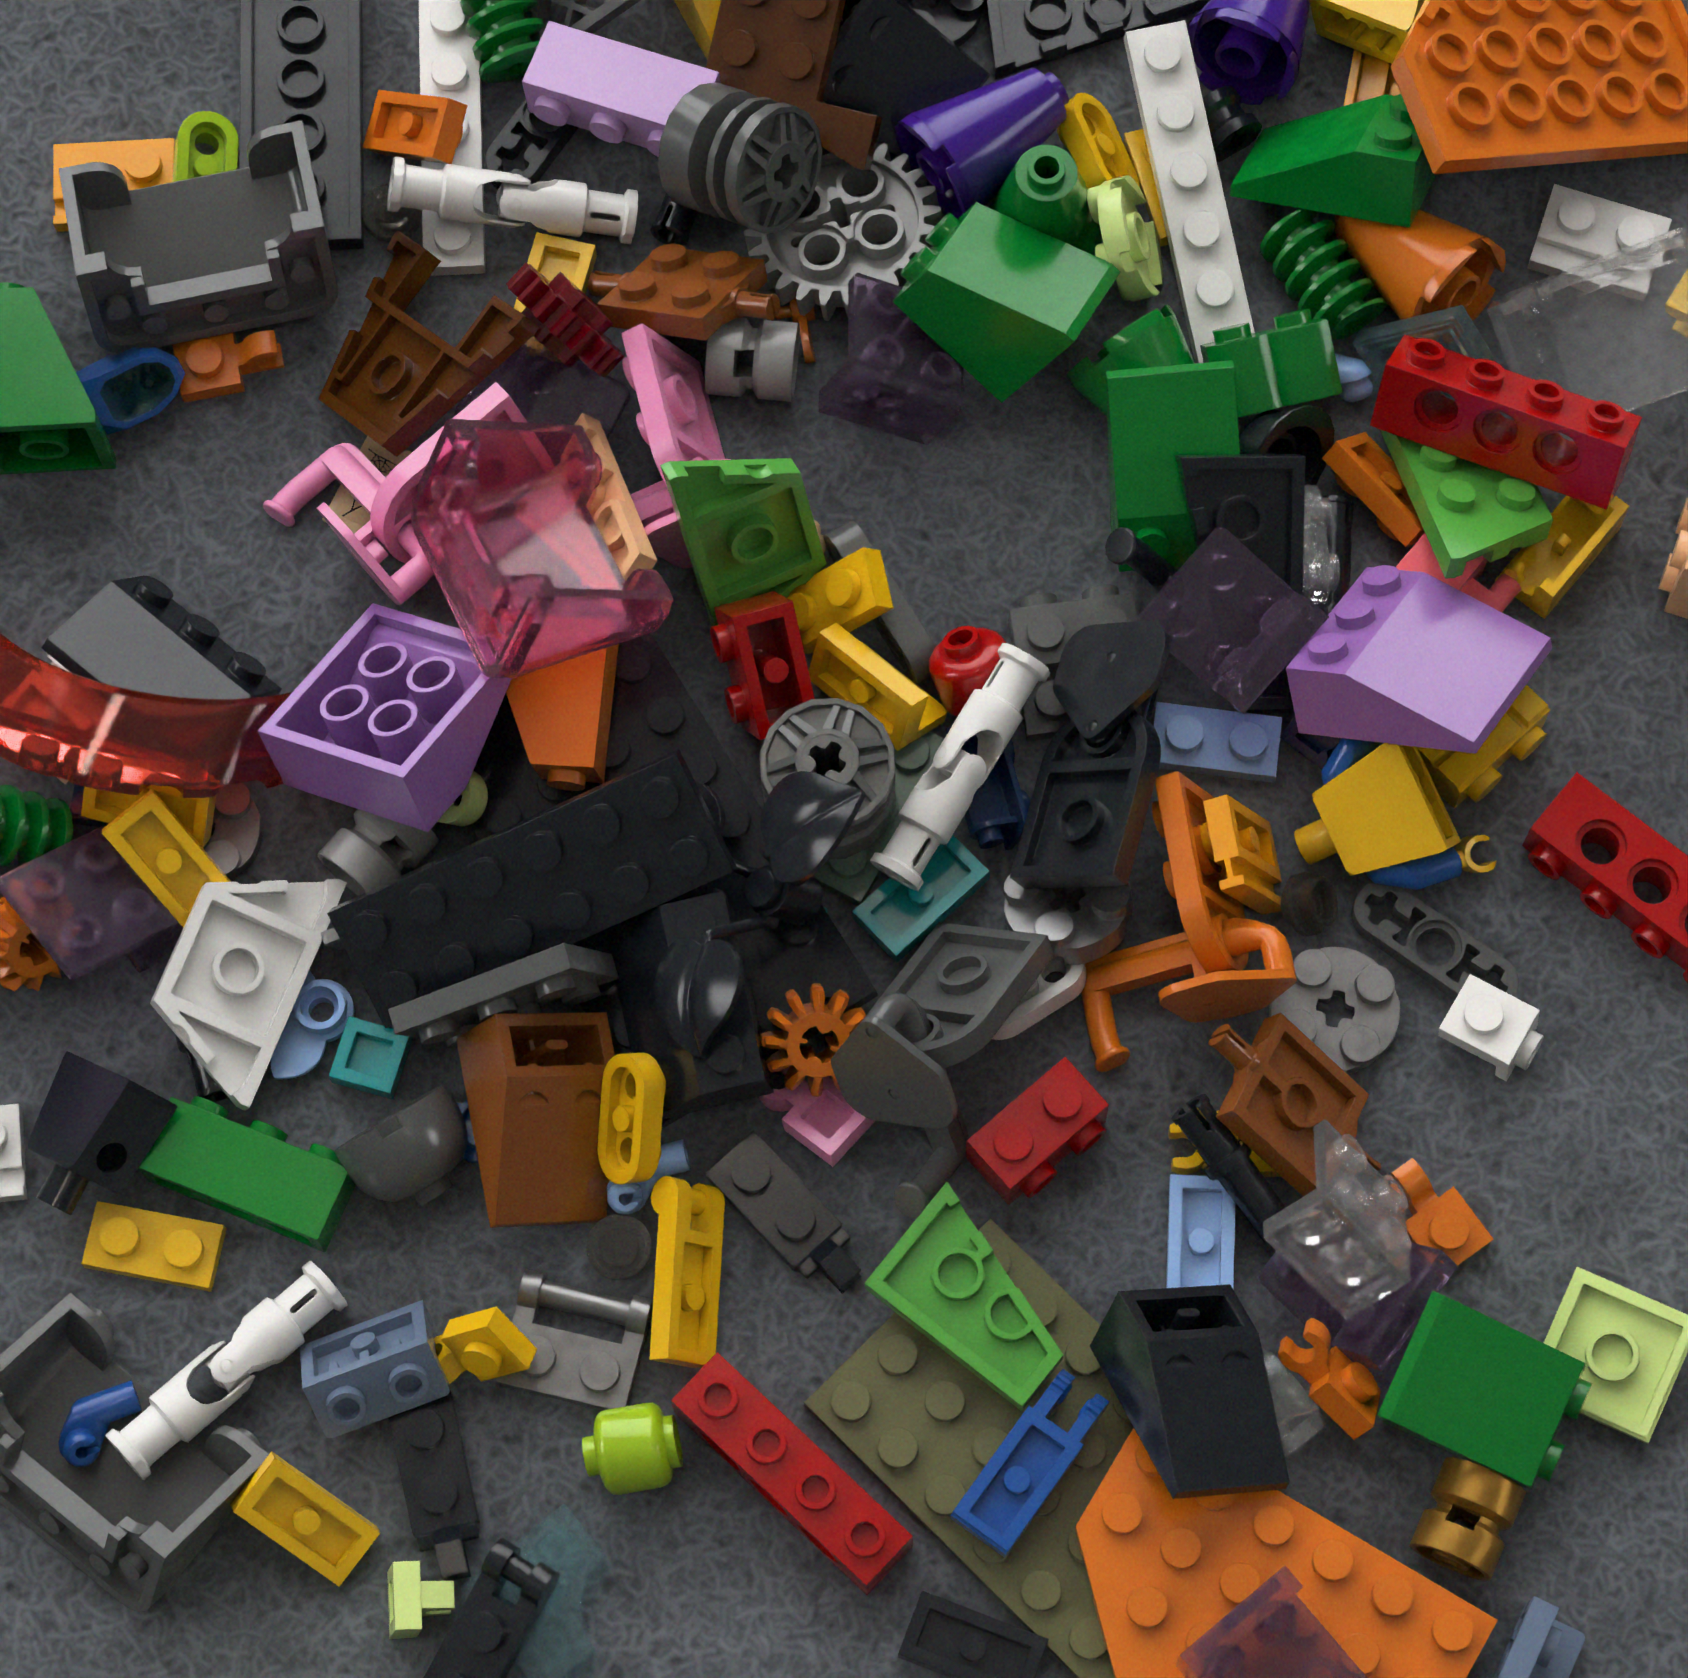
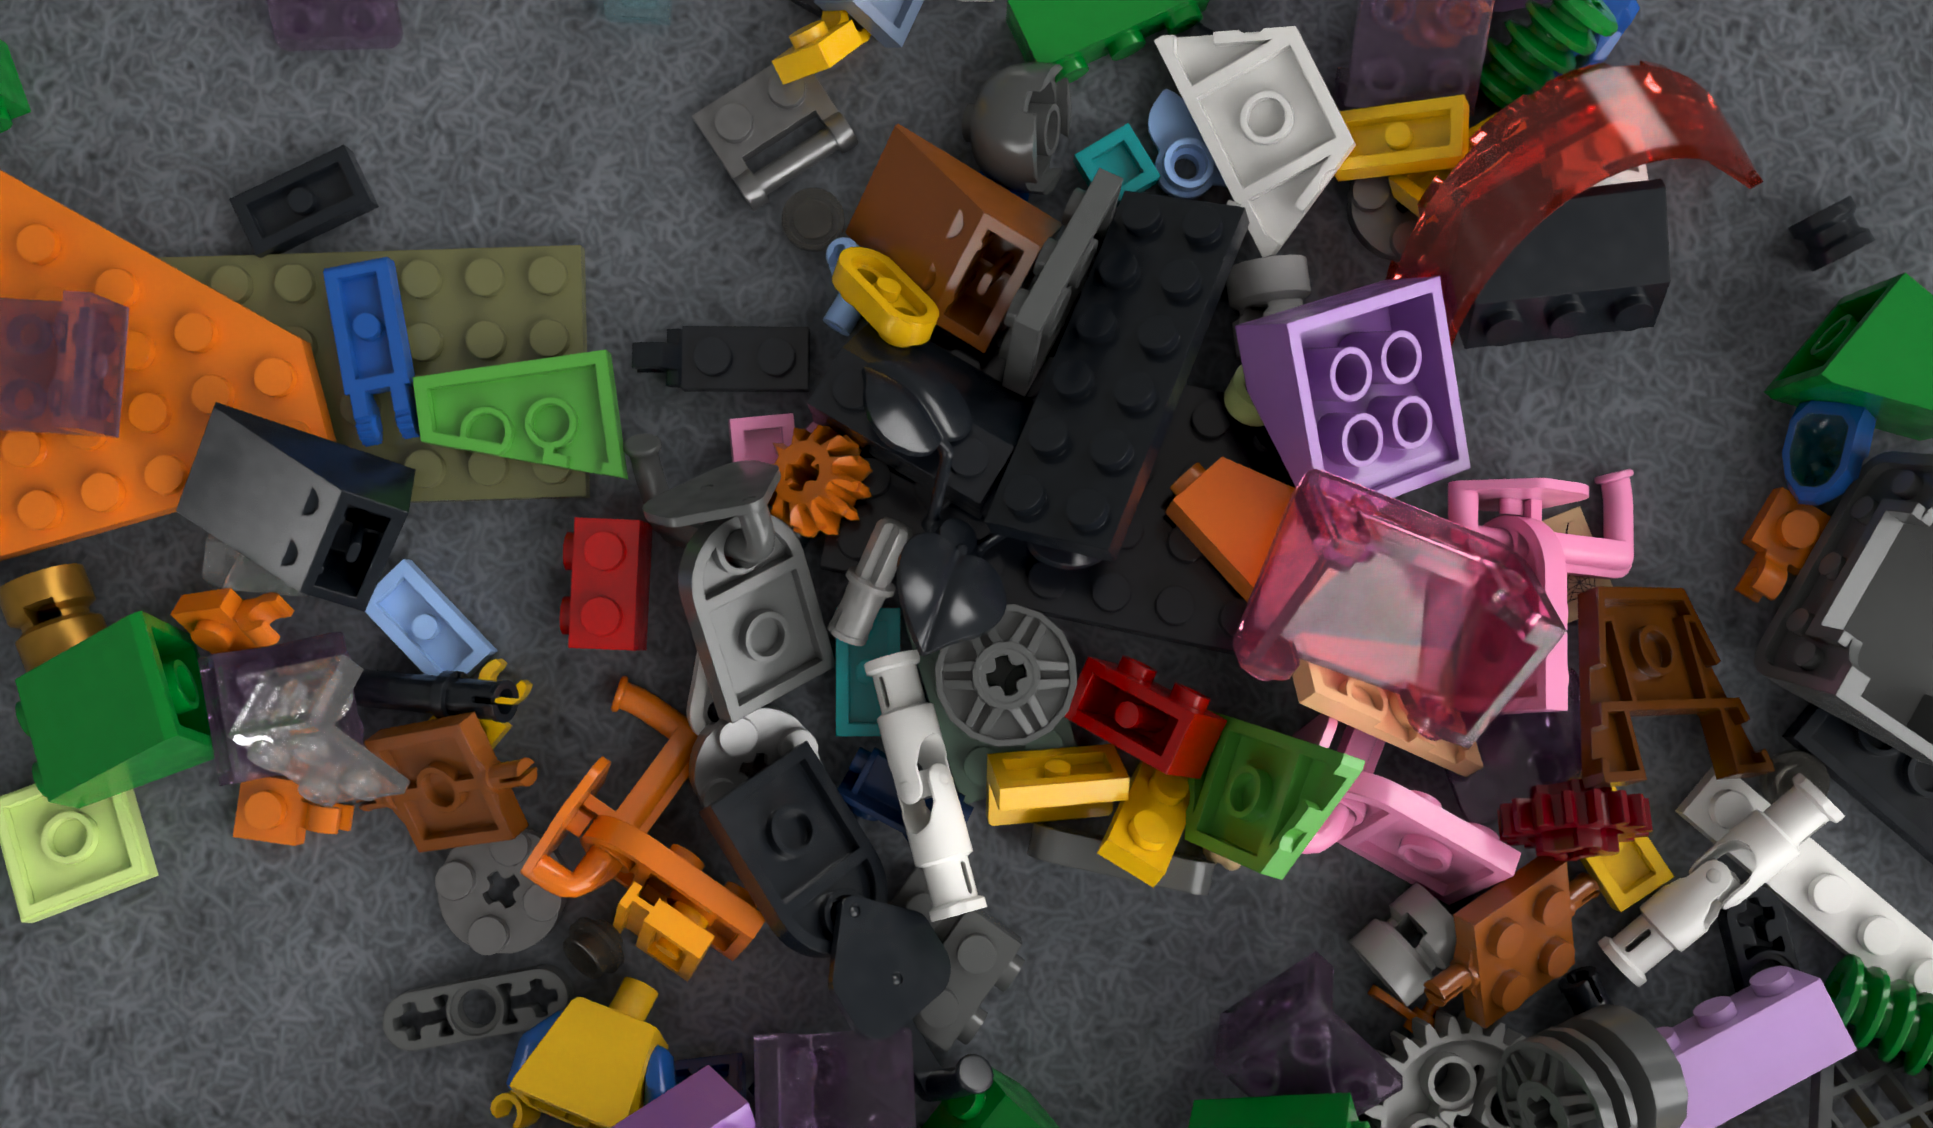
camera: 130 degrees right, 15 degrees up
(415, 126) = (1854, 863): orange plate -> none
(633, 1448) = (655, 94): lime head -> none
(686, 1271) = (746, 245): yellow plate -> none
(792, 1473) = (531, 185): red brick -> none
(852, 935) = (870, 582): none -> light grey axle
(963, 664) = (1005, 869): red head -> none
(1218, 741) = (777, 1002): light blue plate -> none
(1493, 1026) = (372, 989): white bracket -> none

